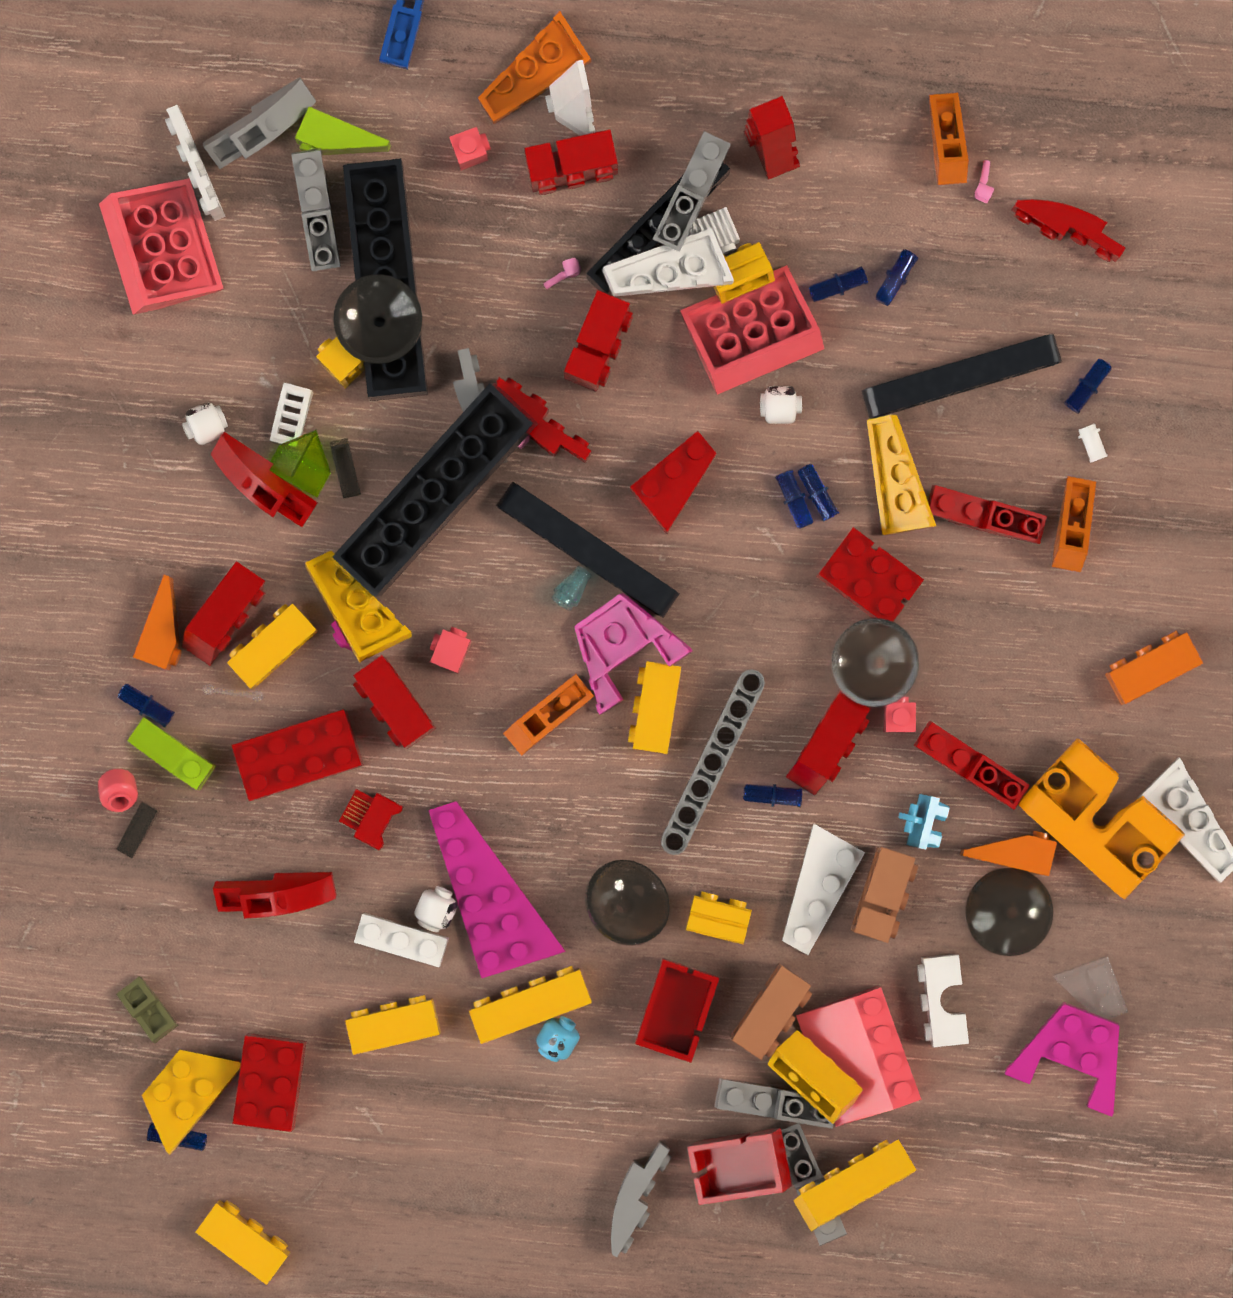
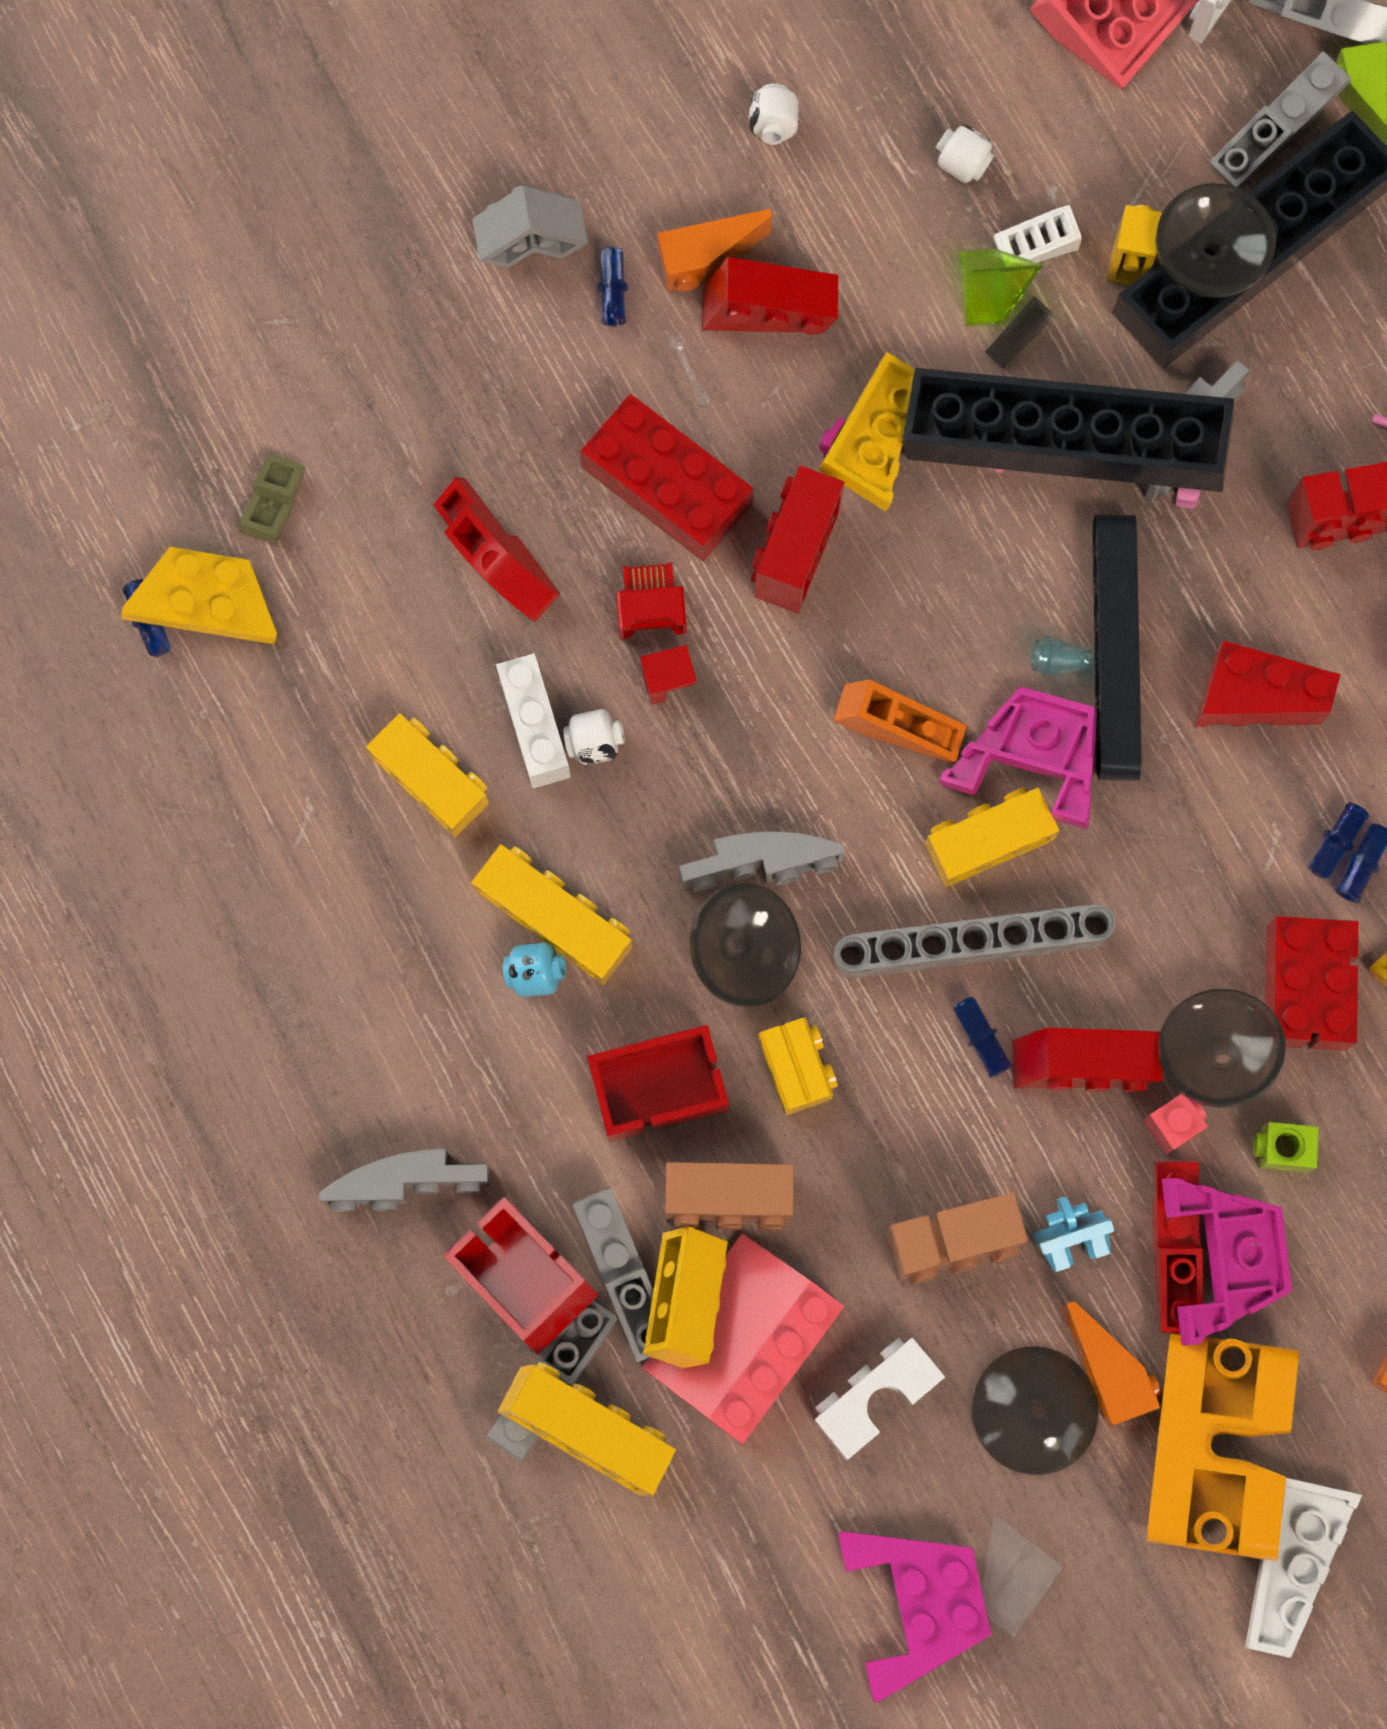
camera: 60 degrees right, 10 degrees down
(73, 734) = (527, 224): none -> light grey brick
(97, 526) = (773, 113): none -> white head
(117, 790) = (498, 311): coral head -> none
(138, 829) = (470, 363): clear smoke piece -> none
(171, 754) = (576, 349): lime slope -> none
(243, 1241) = (72, 765): yellow brick -> none
(253, 478) = (939, 251): red slope -> none
(269, 1082) = (274, 678): red brick -> none
(271, 645) = (769, 375): yellow brick -> none
(425, 837) = (667, 672): none -> red panel
(450, 649) = (898, 568): coral brick -> none
(495, 911) = (636, 805): dark pink wing -> none
(546, 434) = (1212, 516): red slope -> none
(582, 845) = (778, 854): none -> light grey slope
(822, 880) = (918, 1161): white wing -> none
(967, 655) = (1304, 1142): none -> lime brick
(1002, 730) = (1244, 1254): none -> dark pink wing

